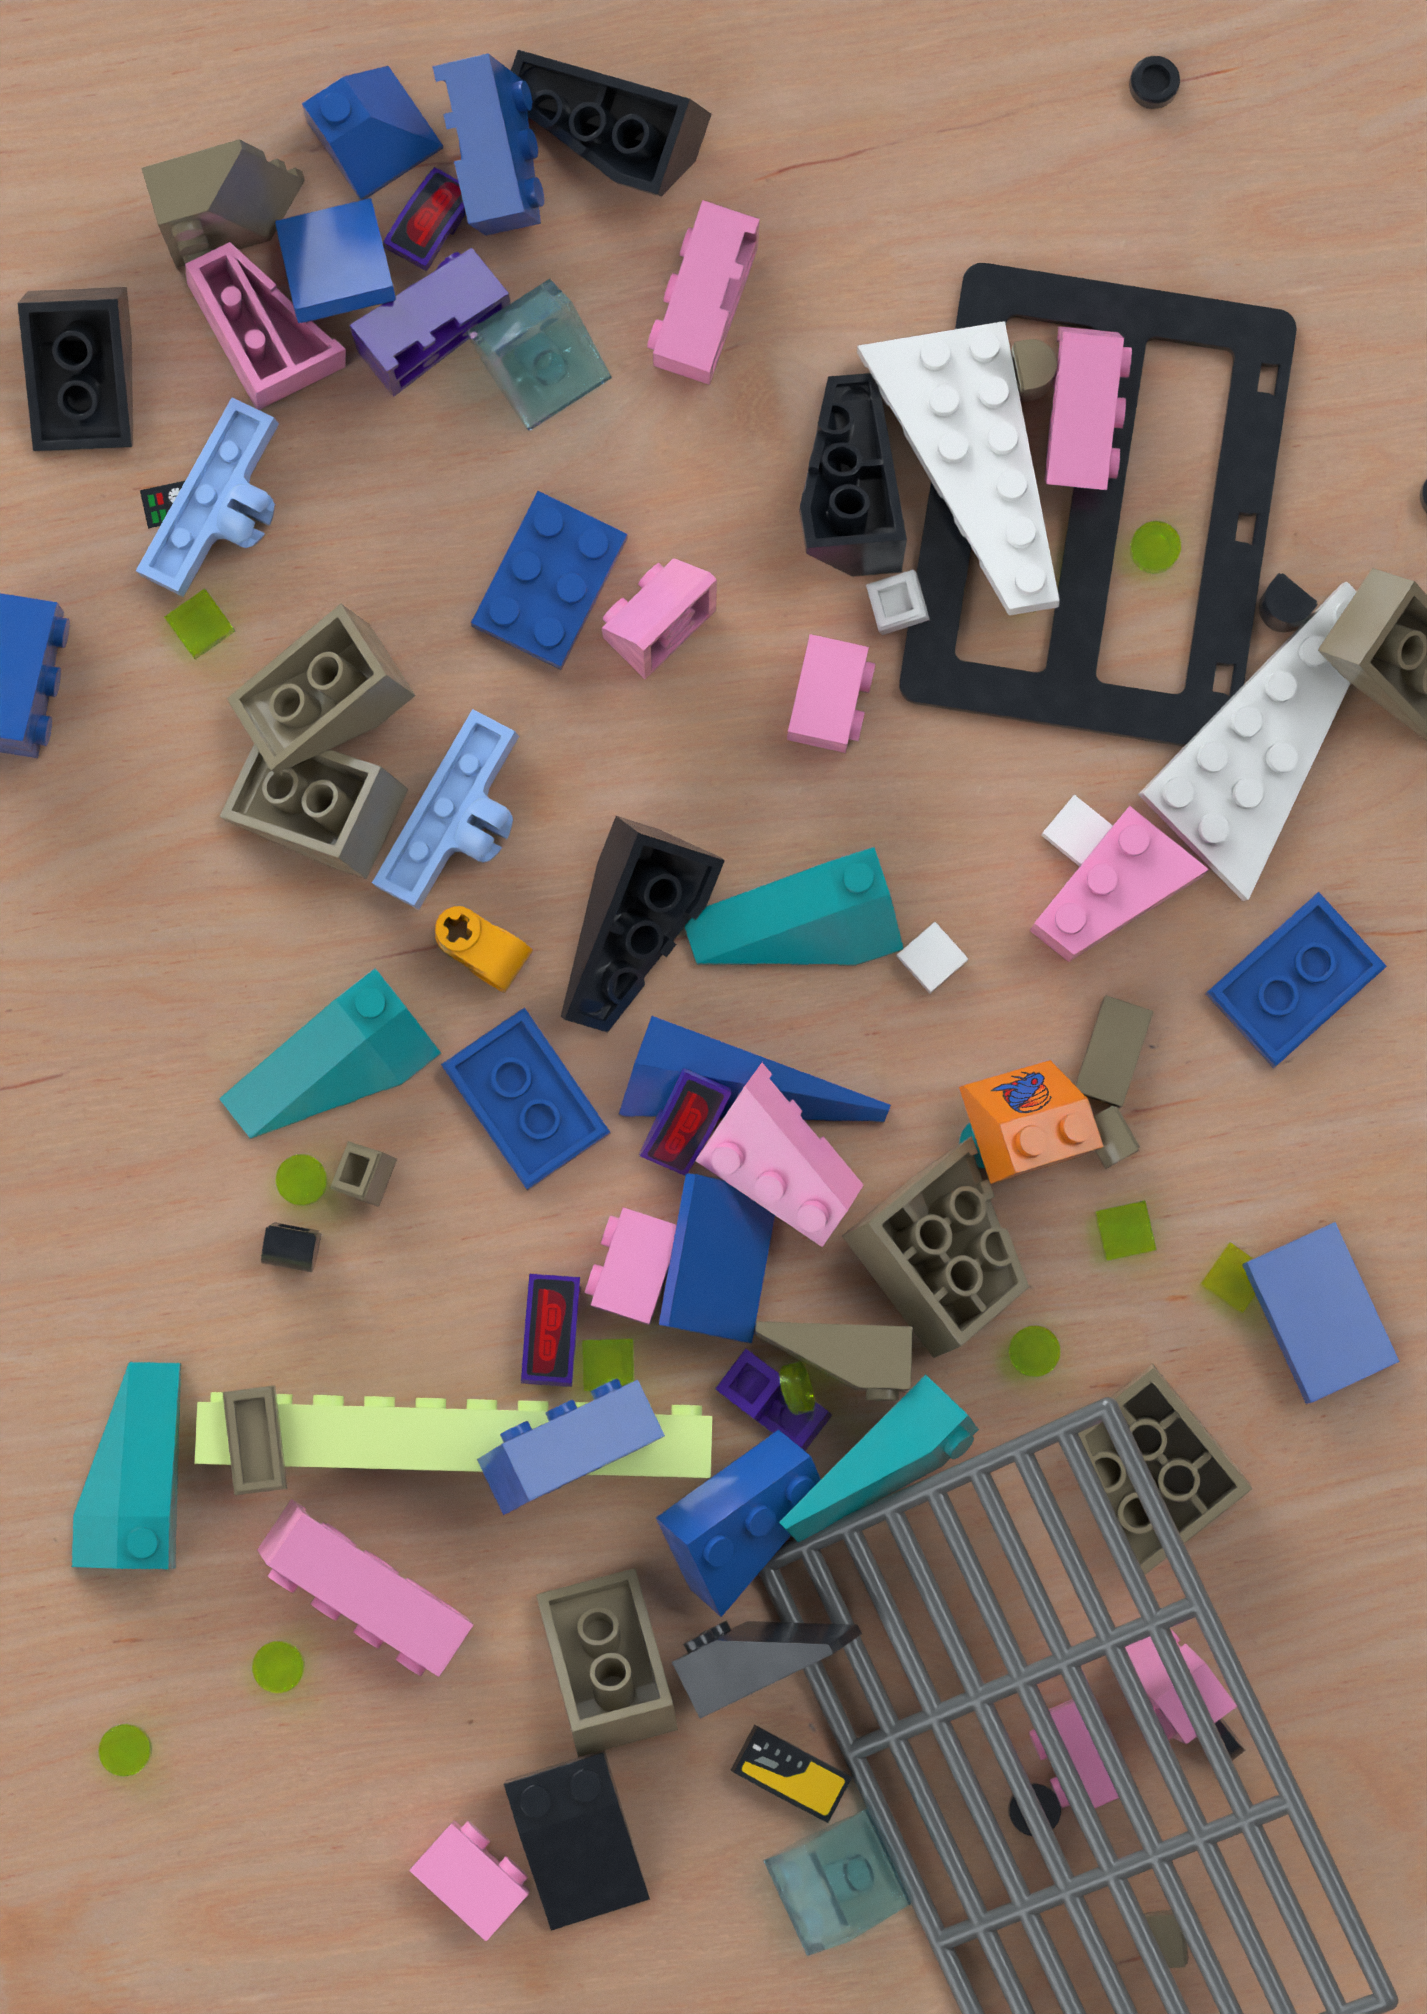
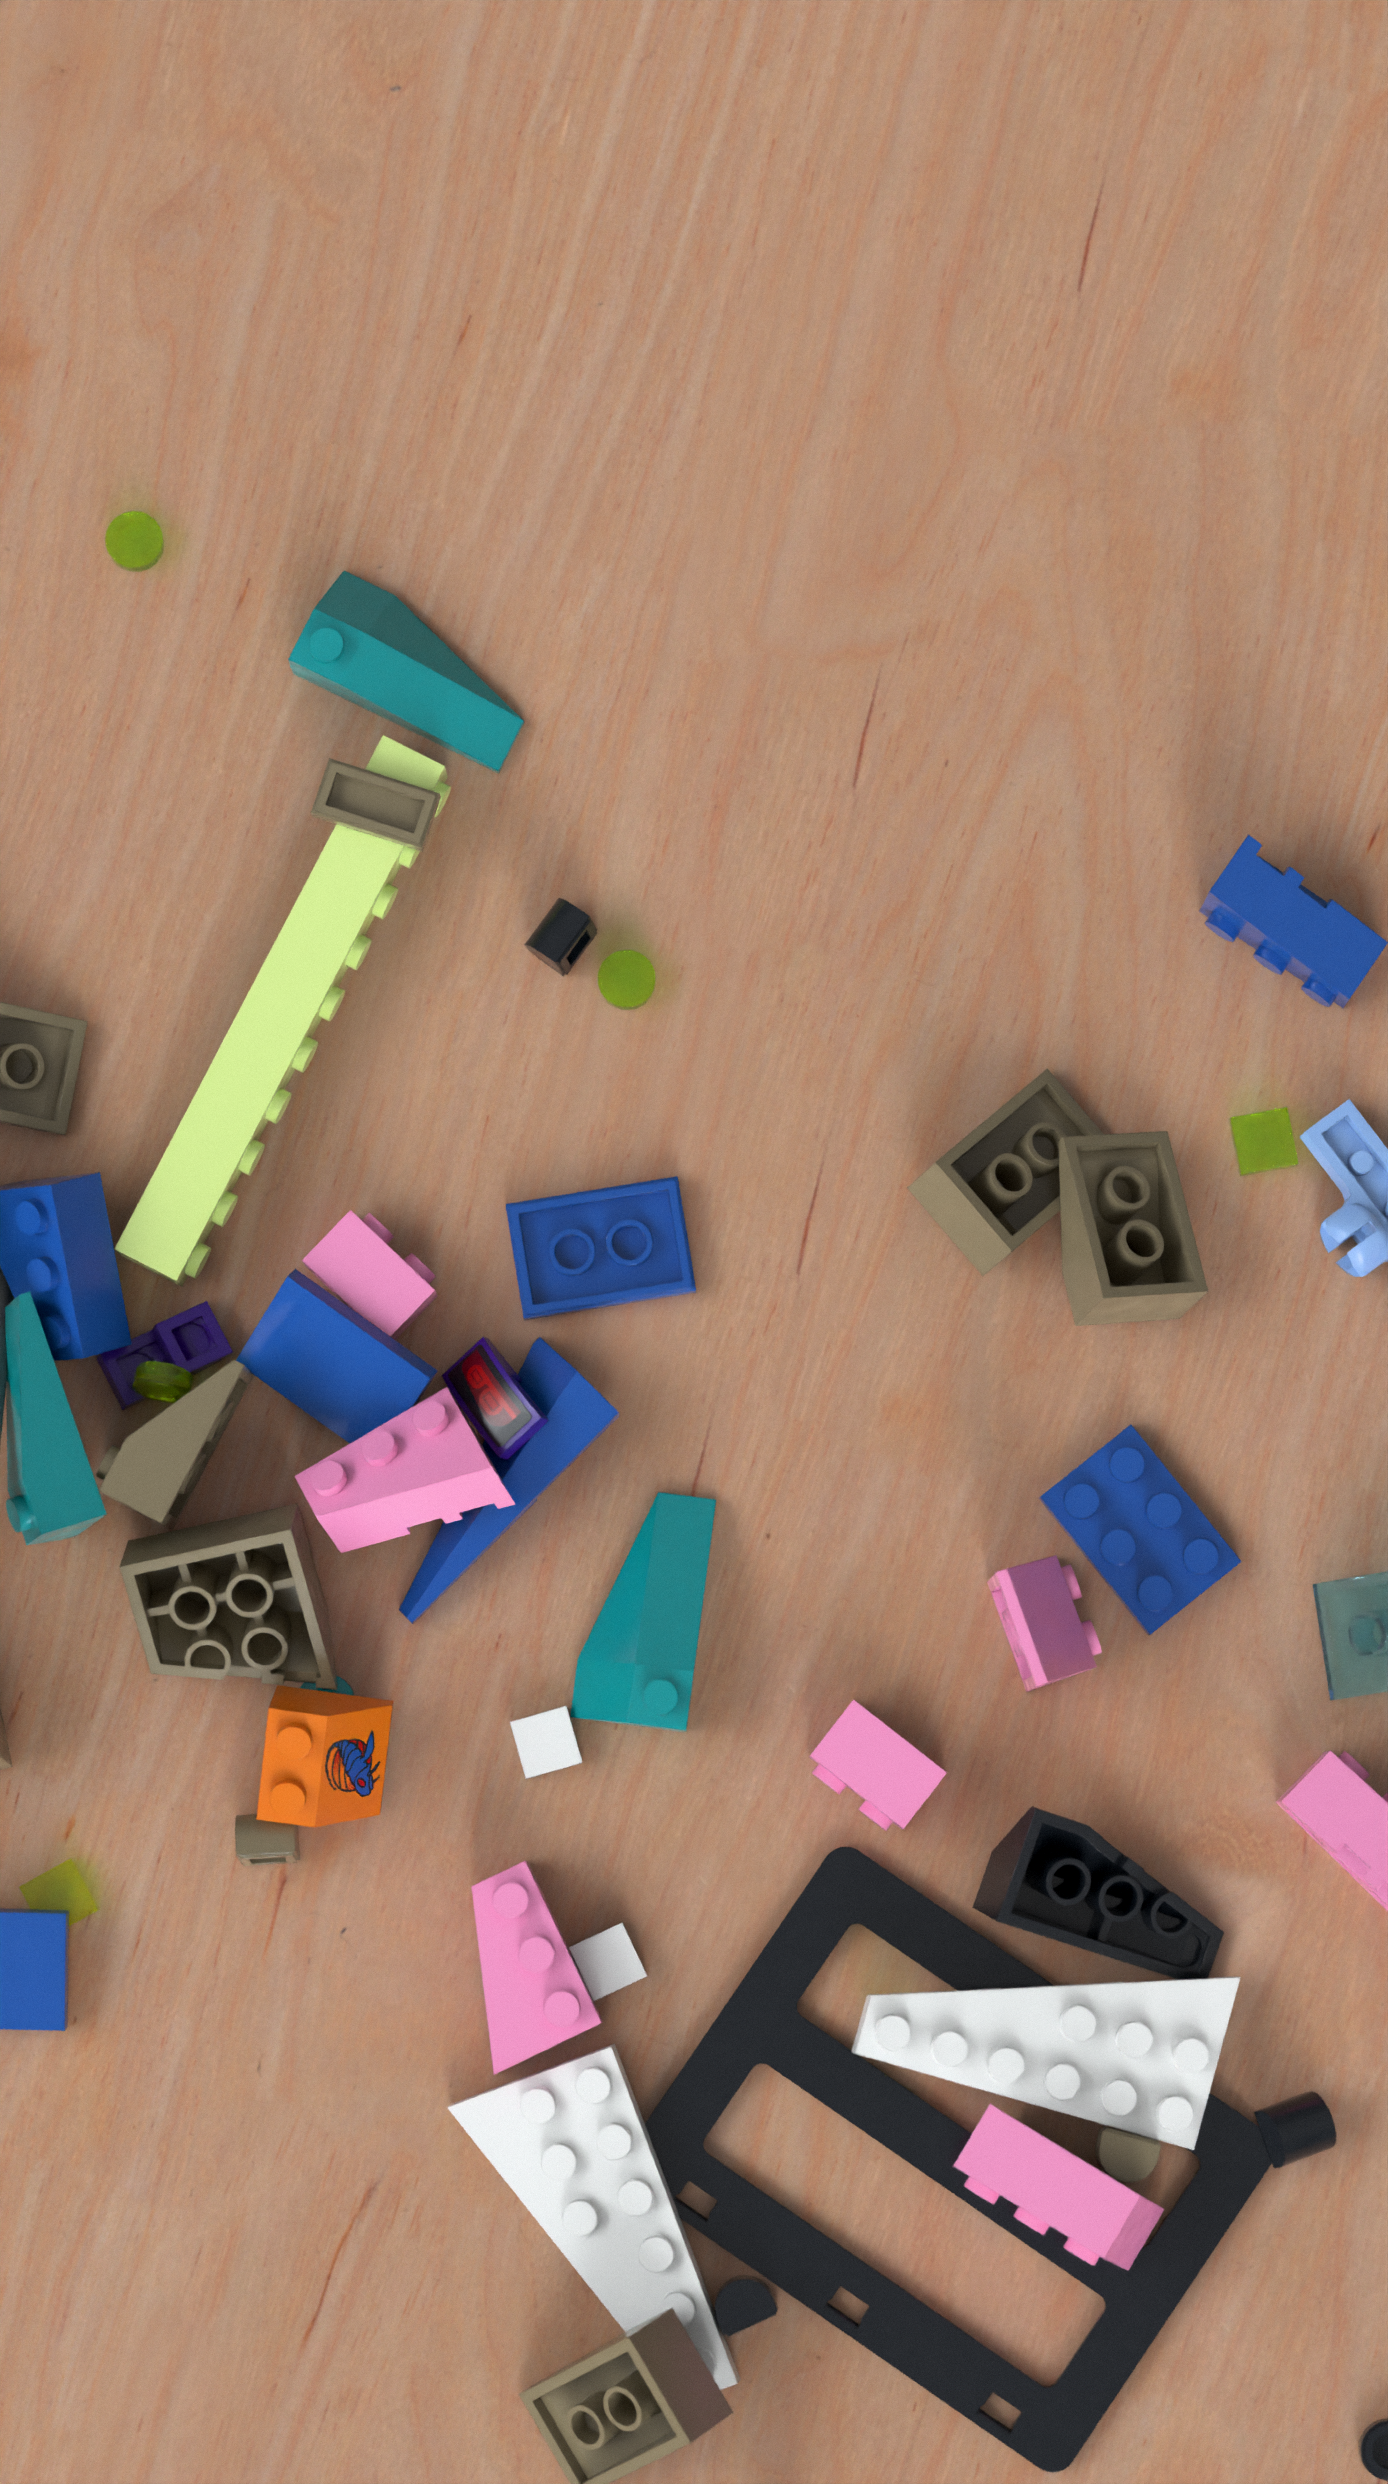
camera: 120 degrees right, 0 degrees up
(278, 1666) = (142, 730): clear neon green tile -> none
(344, 1053) = (734, 1083): teal wedge -> none
(363, 1173) = (600, 1044): dark tan brick -> none
(363, 1591) = (174, 845): bright pink wedge -> none
(452, 812) = (936, 1310): light blue plate -> none
(488, 953) = (769, 1279): light orange piece -> none
(550, 1330) = (348, 1160): slope -> none
(569, 1444) = (212, 1118): wedge -> none
(607, 1361) = (284, 1204): clear neon green tile -> none
(636, 907) = (747, 1458): black wedge -> none
(897, 602) = (942, 1888): white tile -> none
(949, 254) = (1296, 2128): none -> black brick
(1034, 1351) = (85, 1650): clear neon green tile -> none
(1113, 1051) = (356, 1885): dark tan tile -> none
(1125, 1231) = (163, 1806): clear neon green tile -> none
(1155, 547) = (873, 2196): clear neon green tile -> none
(1296, 980) = (339, 2118): blue tile -> none

